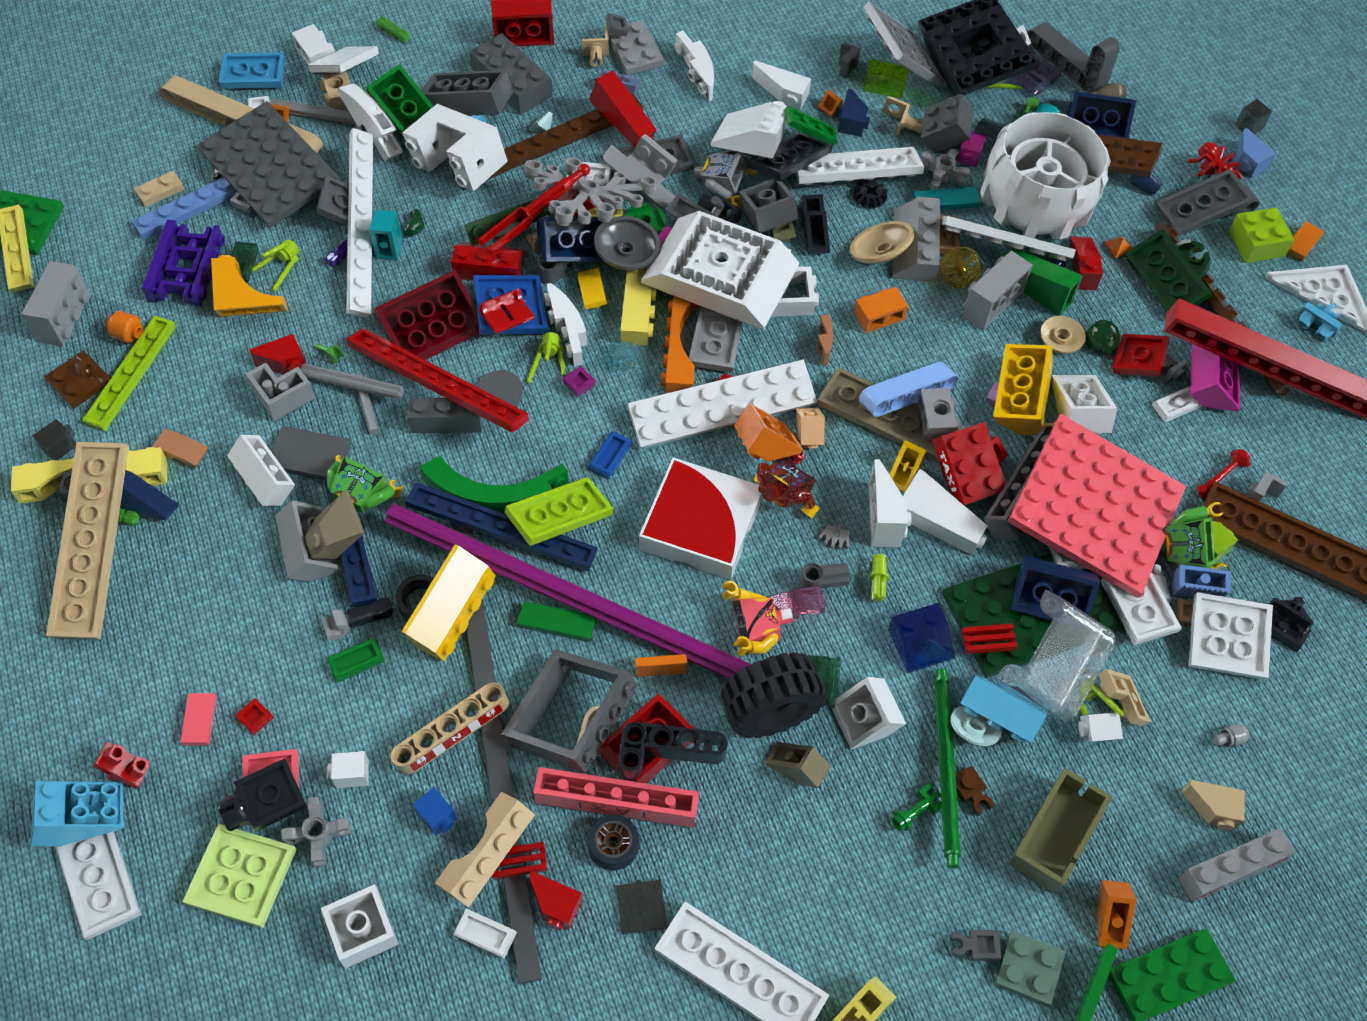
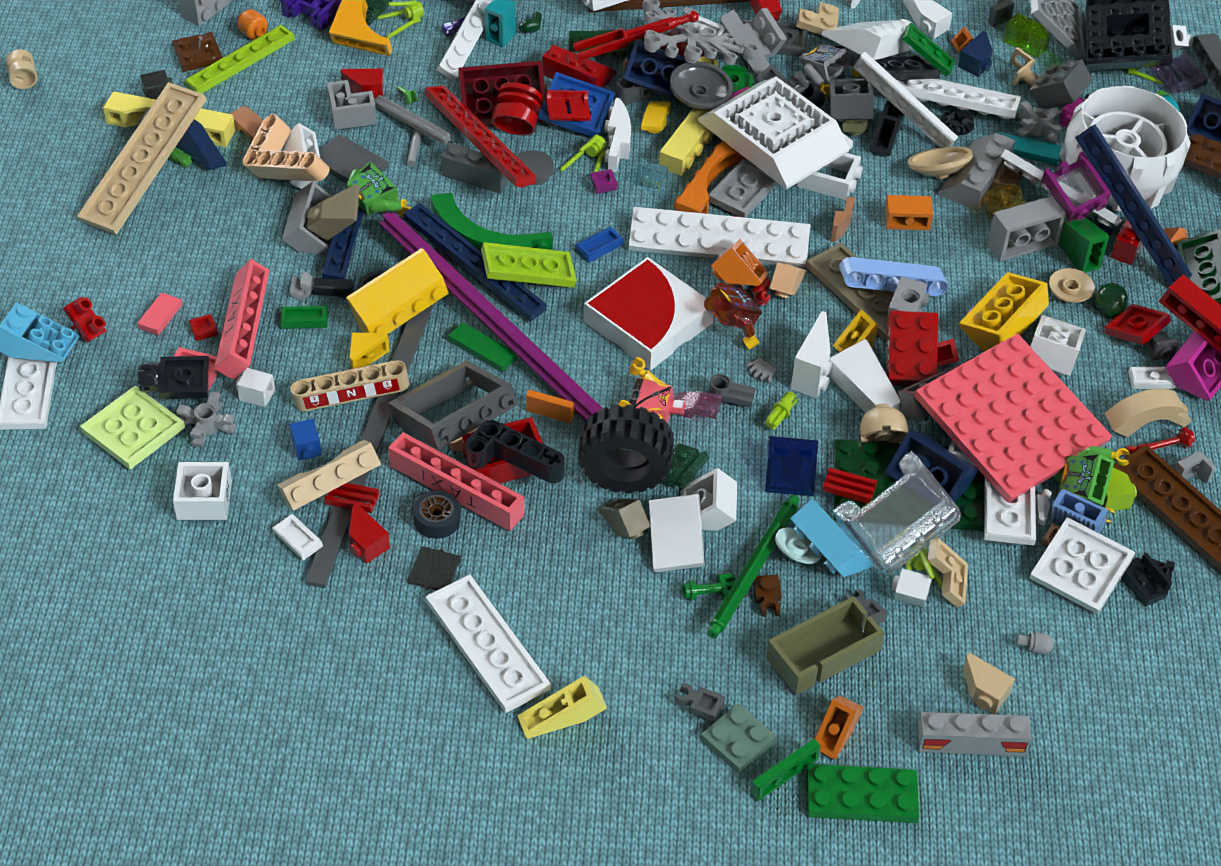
camera: 25 degrees right, 10 degrees down
(221, 491) = (269, 162): none -> light nougat beam
(297, 696) = (242, 319): none -> coral brick
(442, 674) = (367, 348): none -> yellow slope
(457, 333) = (517, 108): none -> red wheel
(692, 127) = (824, 19): none -> tan plate
(822, 192) = (904, 101): none -> white tile
(859, 763) = (676, 533): none -> white tile
(986, 558) = (883, 424): none -> tan cylinder
(1033, 235) = (1077, 188): none -> magenta window
(1071, 763) = (870, 605): none -> dark grey plate
(1088, 236) = (1132, 204): none -> dark blue plate
(1198, 446) = (1146, 407): none -> tan arch

